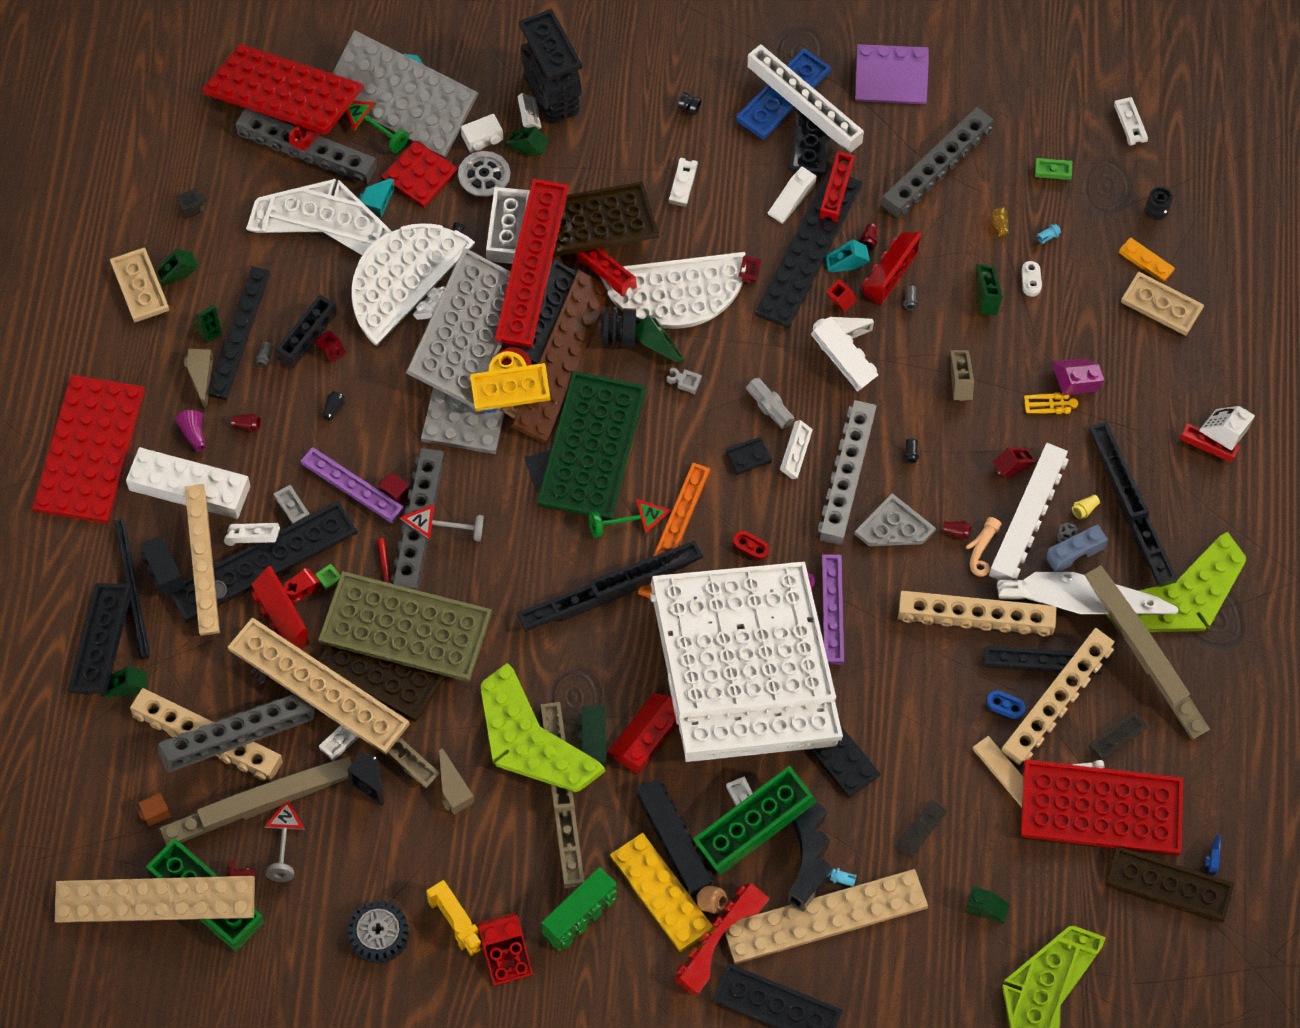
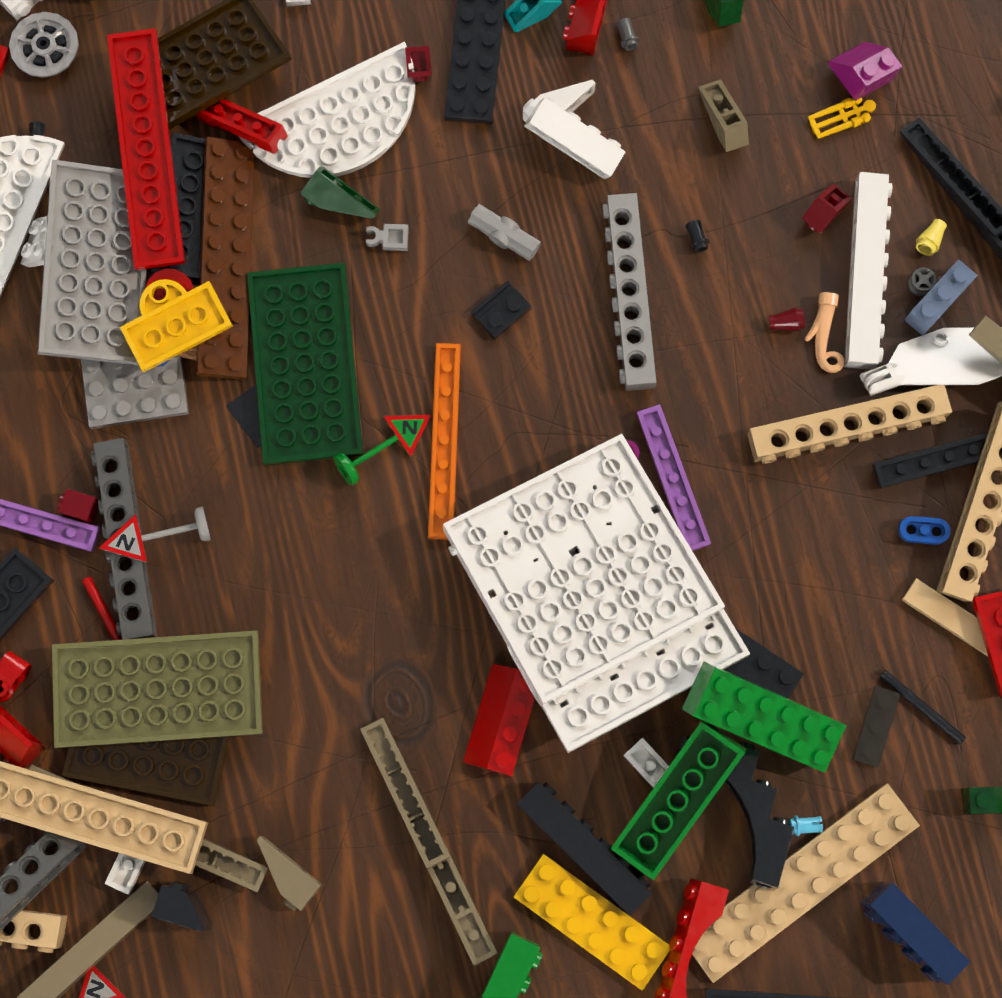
camera: 15 degrees left, 15 degrees up
(328, 577) = (37, 653): bright green plate -> none
(505, 223) = (93, 104): white brick -> none
(523, 745) = (372, 796): lime wing -> none
(593, 732) = (439, 751): clear green brick -> none
(609, 587) = (392, 545): black slope -> none
(619, 327) = (284, 196): black wheel -> none
(711, 899) = (658, 913): medium nougat head -> none
(751, 546) = (546, 426): red plate -> none
(796, 449) = (557, 283): white plate -> none
(837, 784) = (763, 717): none -> green brick
(841, 295) = (543, 60): red brick -> none
(894, 525) = (710, 341): light grey plate -> none
(895, 972) = (915, 933): none -> dark blue brick
(960, 826) = (924, 708): none -> black bar

